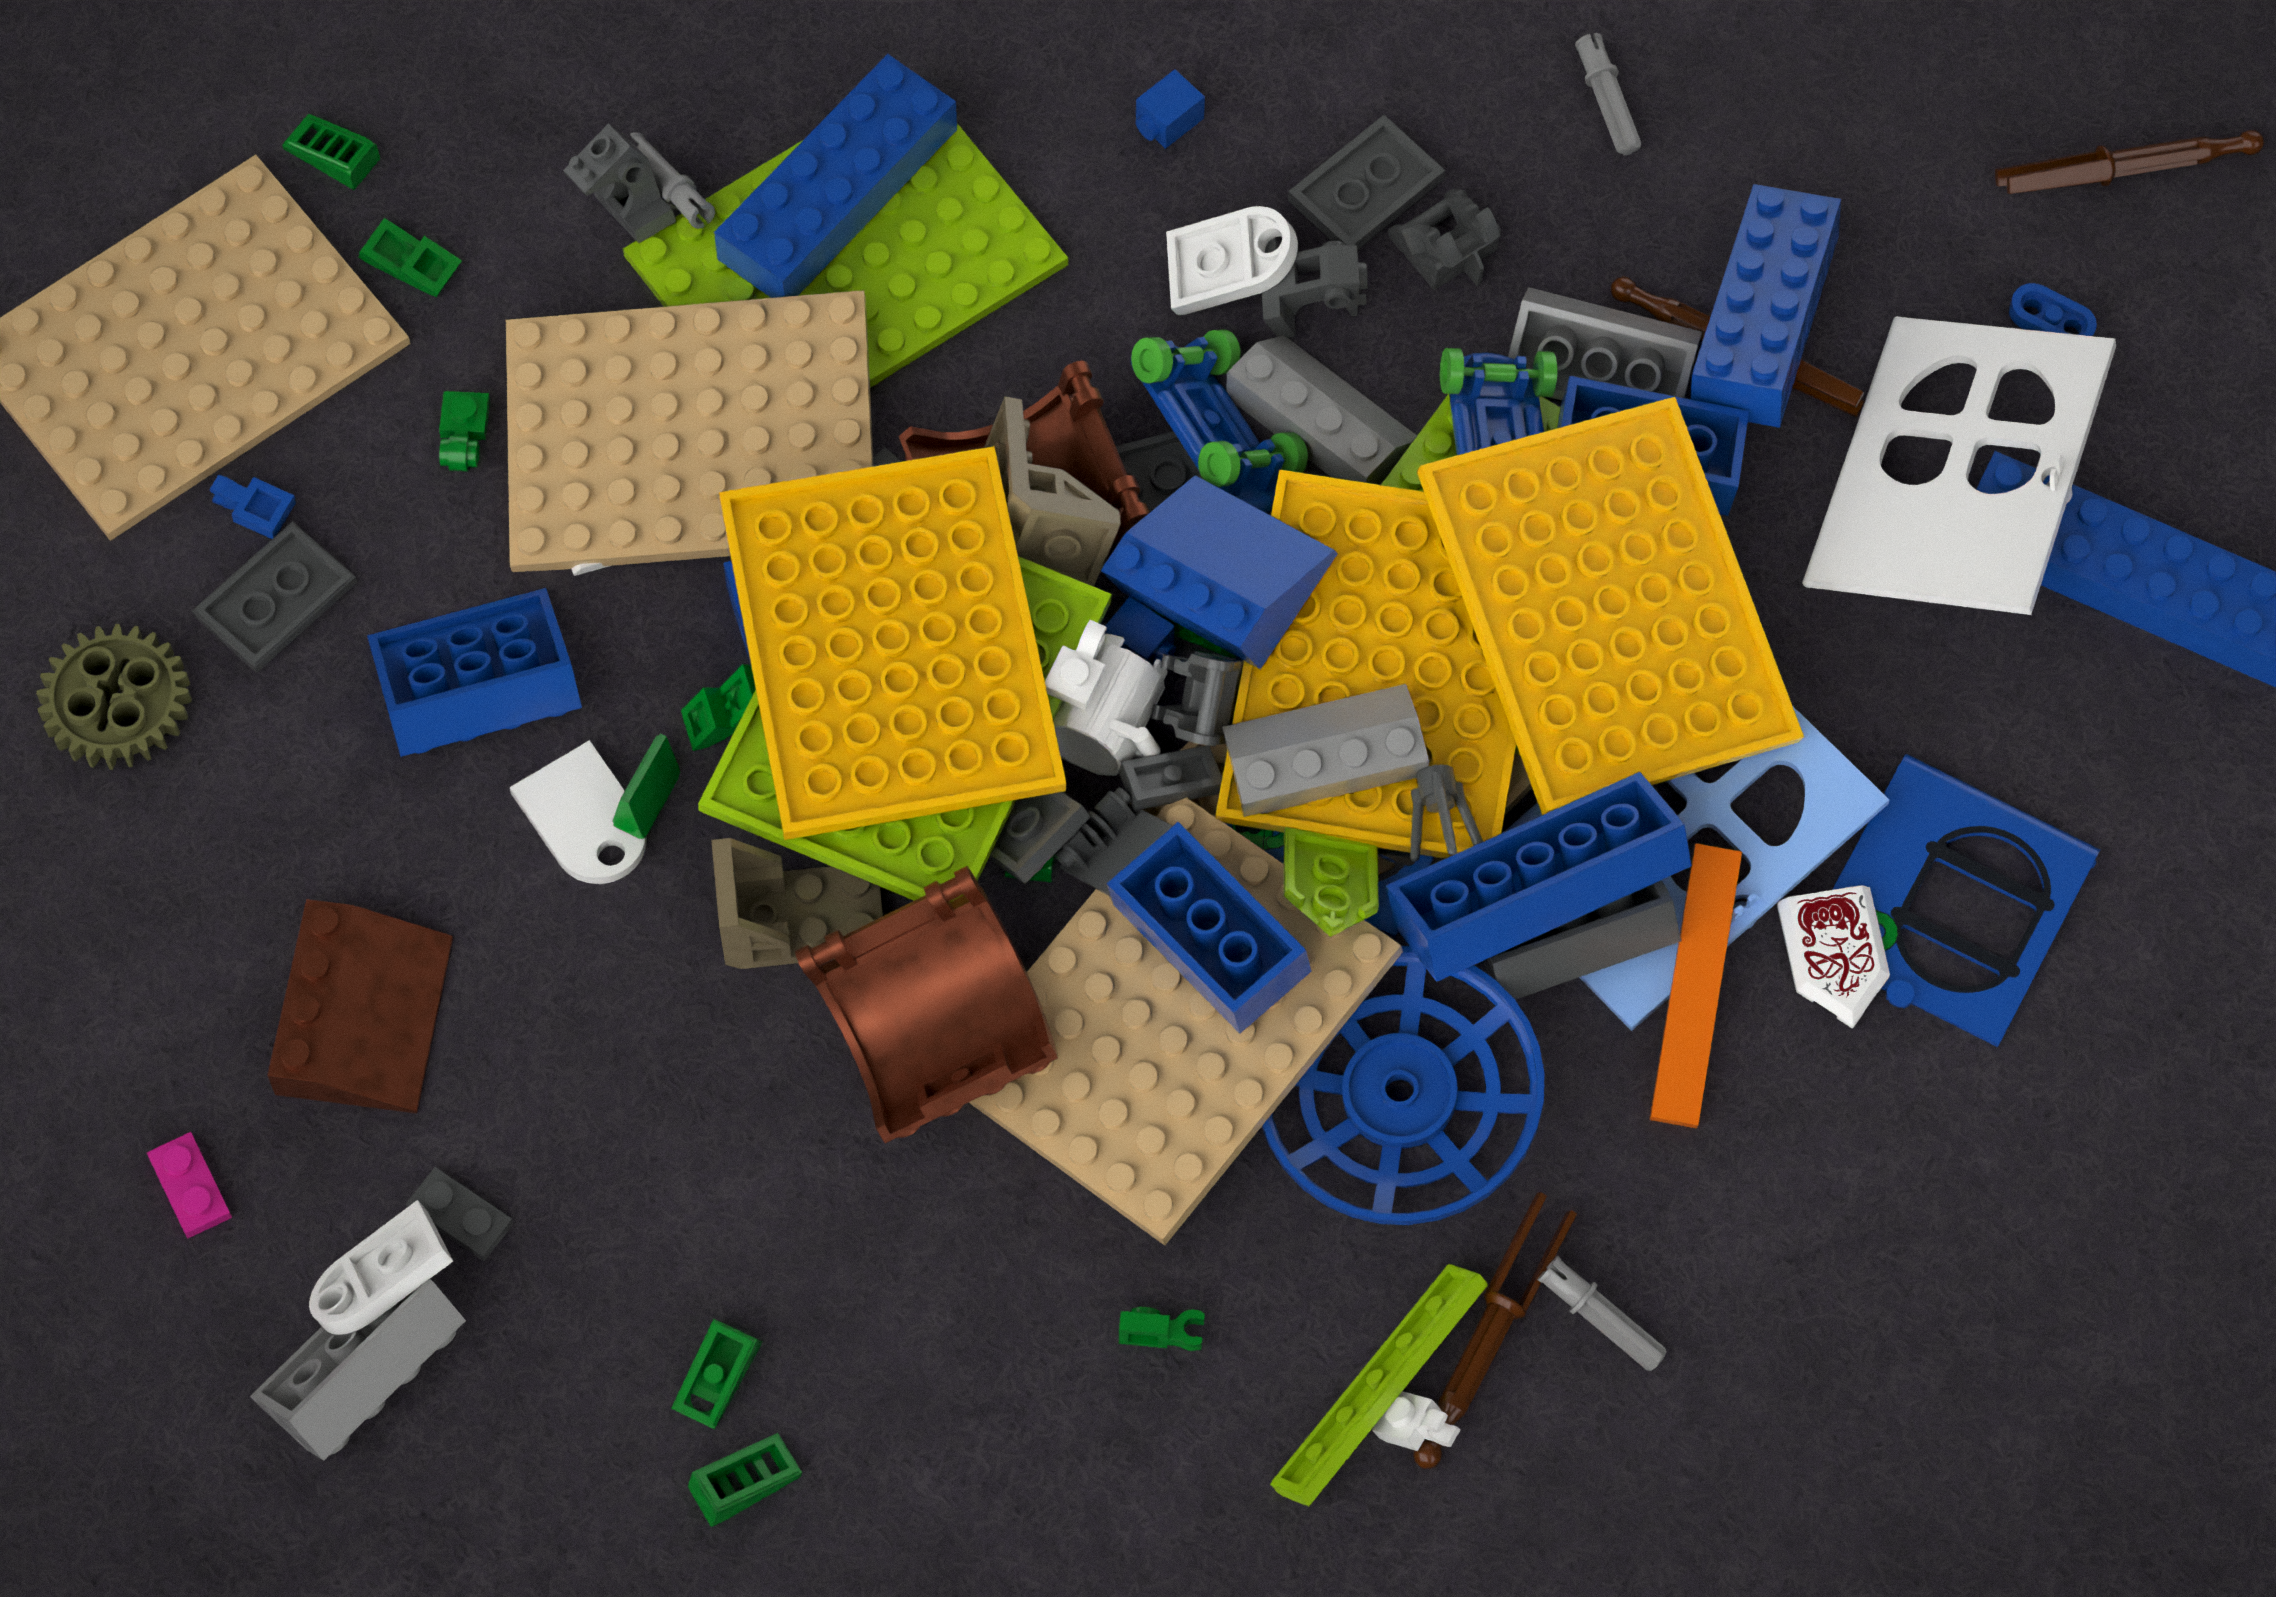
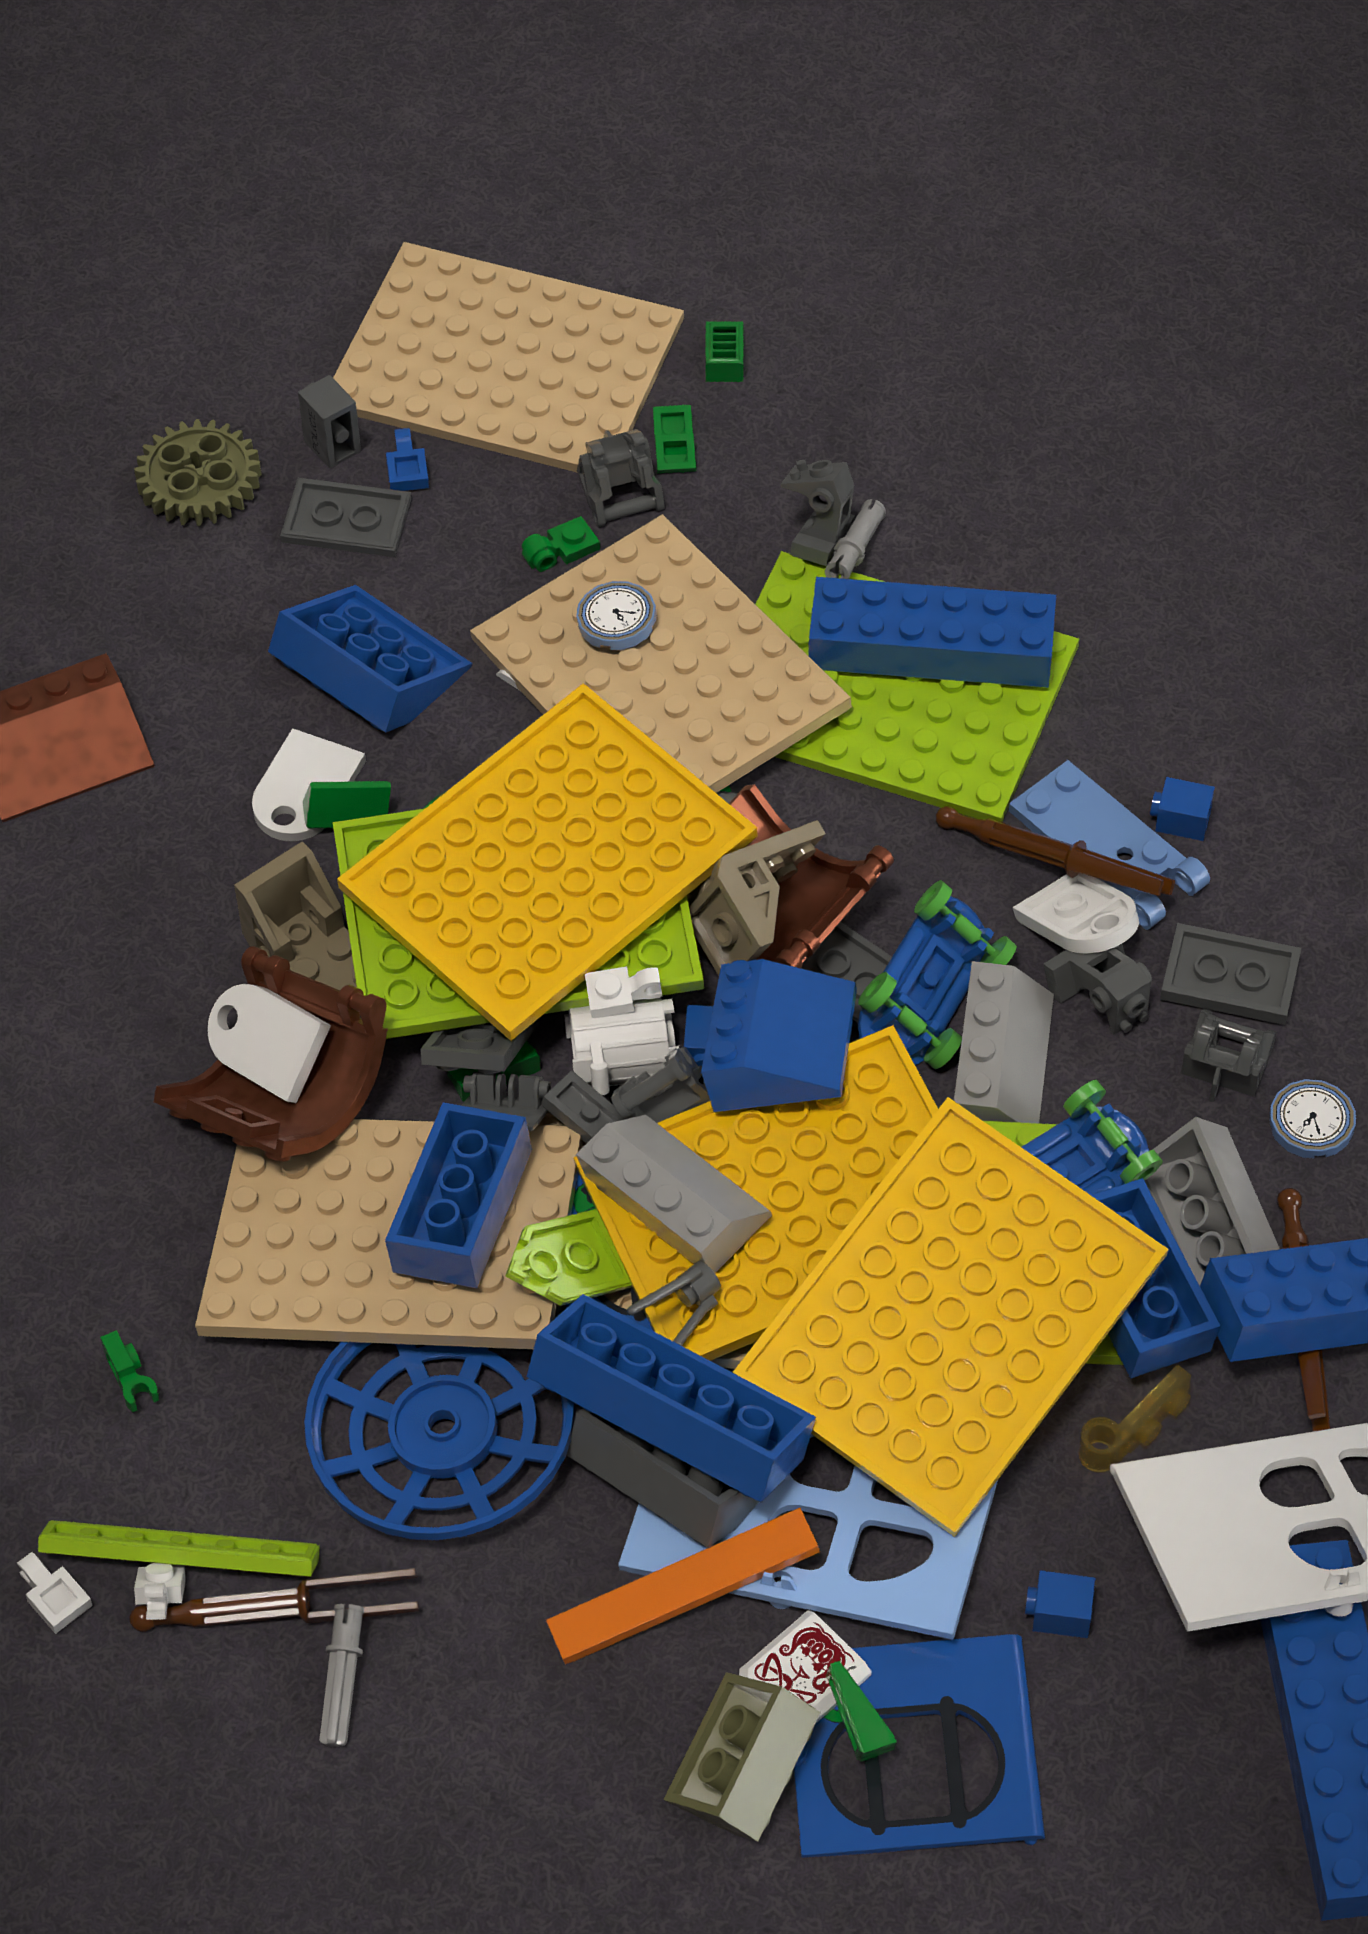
camera: 60 degrees right, 10 degrees down
(159, 538) = (329, 421): none -> dark grey brick
(418, 324) = (615, 462): none -> dark grey piece
(611, 426) = (616, 615): none -> tile
(894, 1003) = (271, 1040): none -> white tile
(1135, 192) = (1076, 808): none -> medium blue hinge
(1167, 226) = (1073, 858): none -> reddish brown piece
(1358, 1515) = (54, 1596): none -> white plate
(1553, 220) = (1312, 1118): none -> tile
(1770, 538) = (1138, 1427): none -> clear yellow plate
(1891, 1033) = (742, 1755): none -> olive slope
(1901, 702) = (1061, 1604): none -> blue brick
(1916, 919) = (862, 1722): none -> green slope

